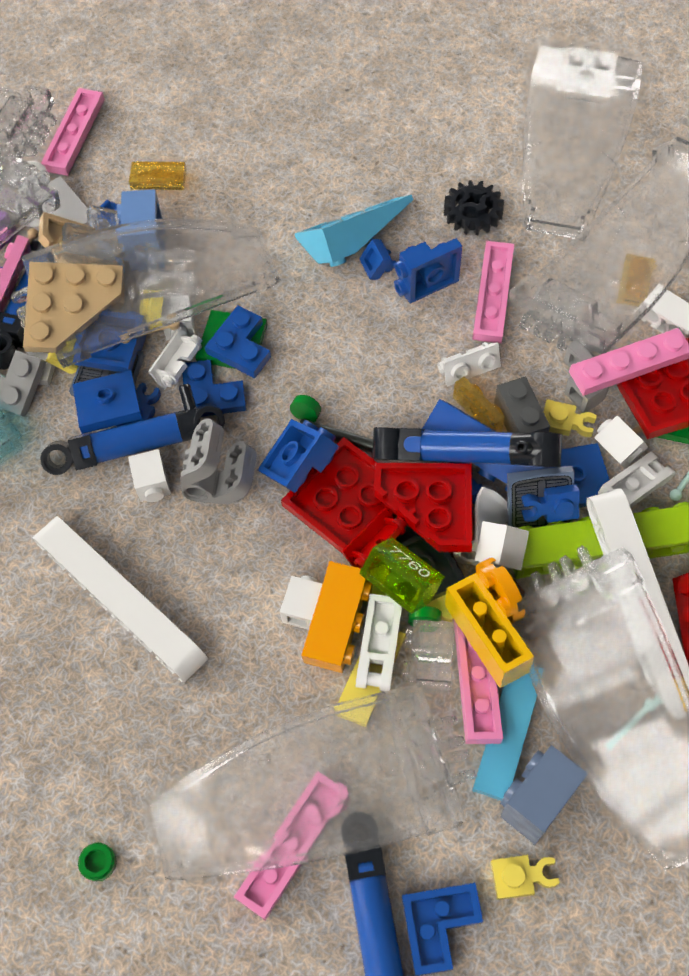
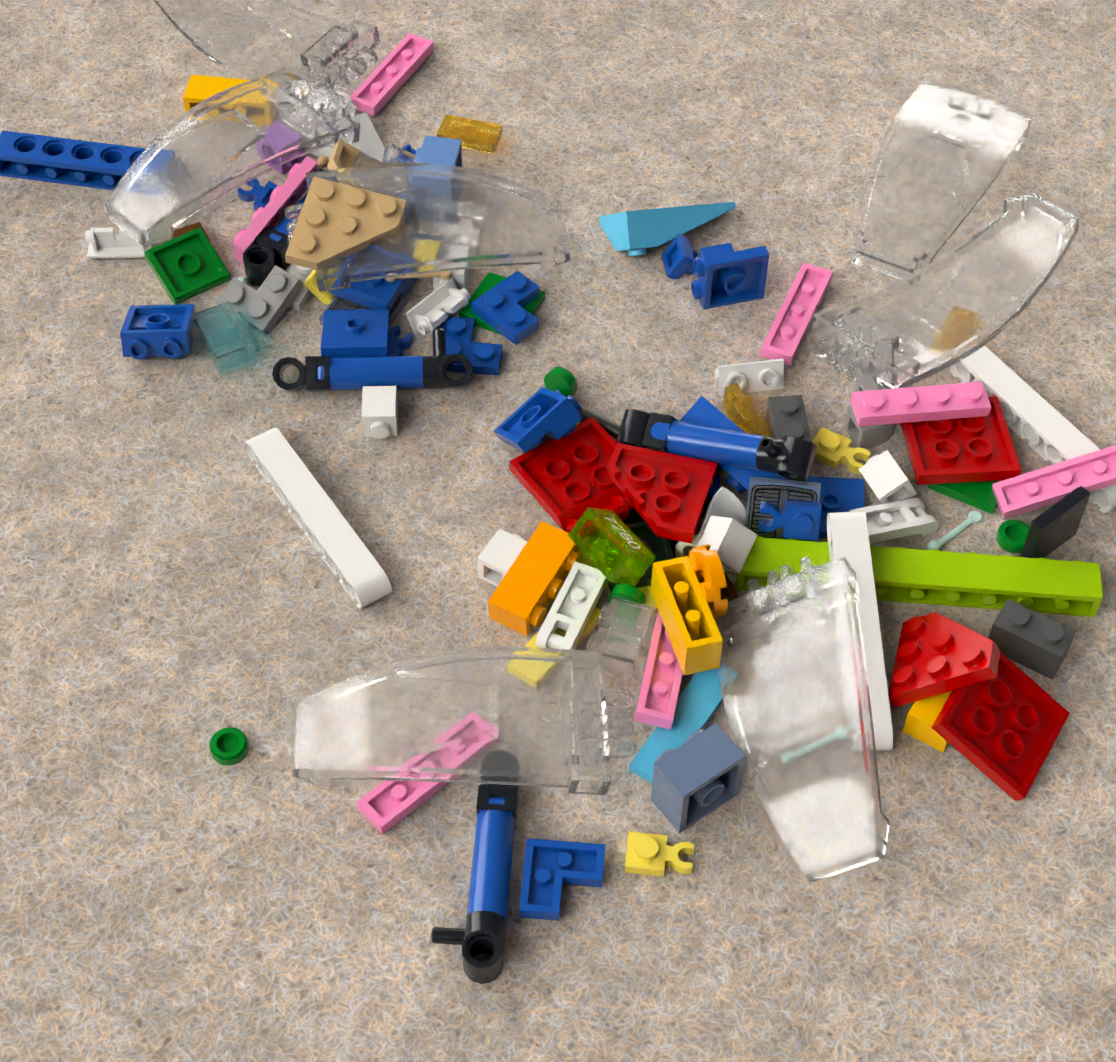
camera: 10 degrees right, 10 degrees down
(200, 476) = (431, 425): light grey piece -> none
(473, 207) = (800, 228): black gear -> none

